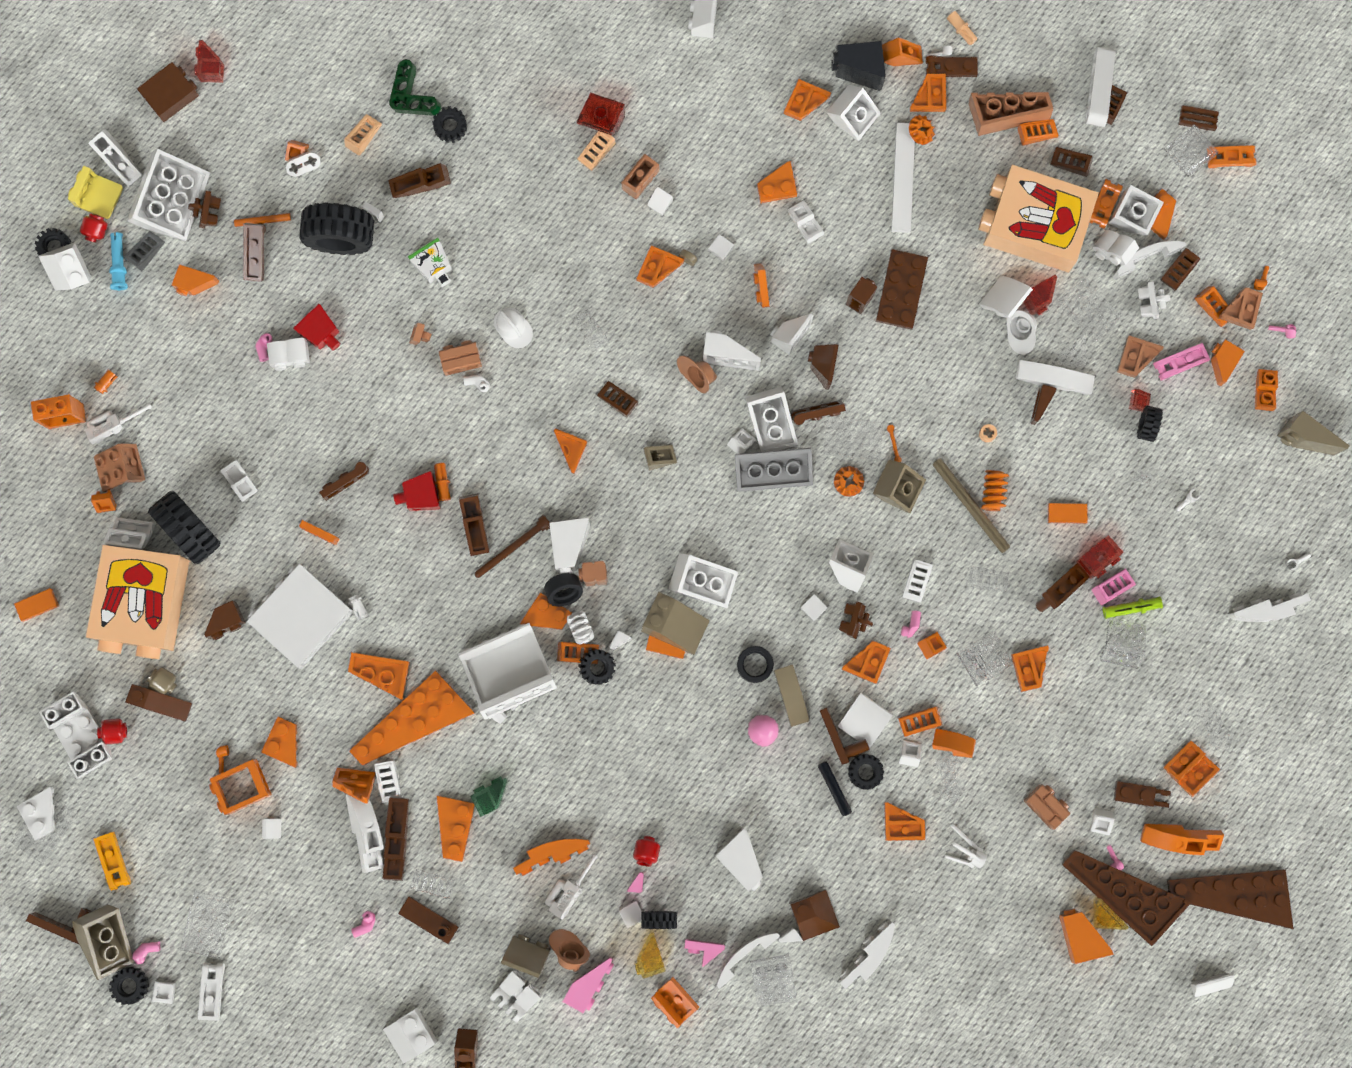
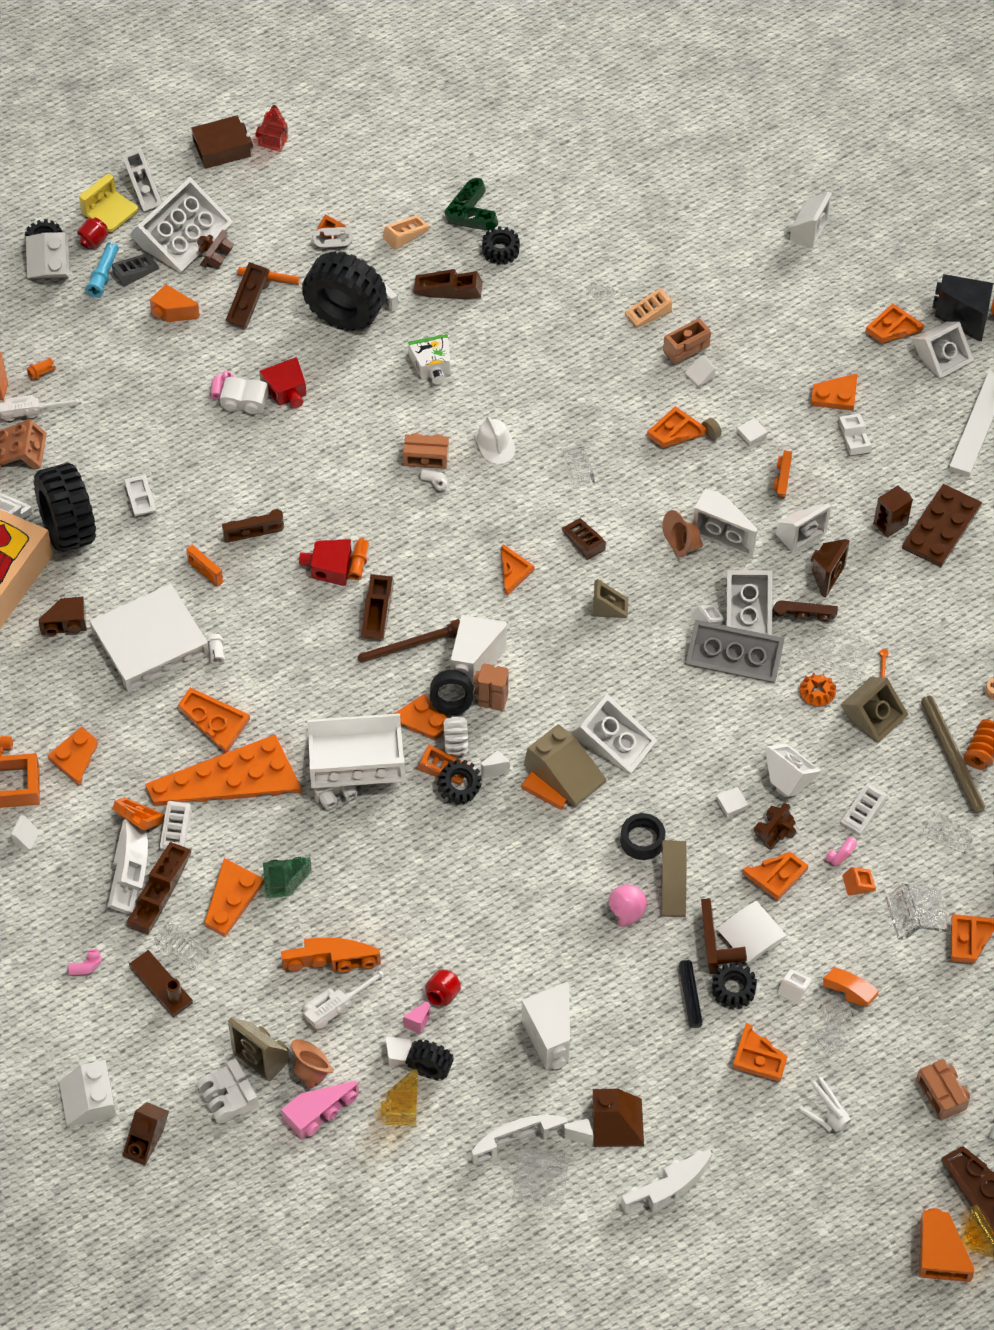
camera: 20 degrees right, 25 degrees down
(418, 334) = (391, 417): nougat tile -> none
(602, 114) = (667, 274): clear red slope -> none
(674, 1002) = (414, 1159): orange bracket -> none
(710, 949) = (477, 1114): bright pink slope -> none
(935, 712) = (818, 946): orange slope -> none

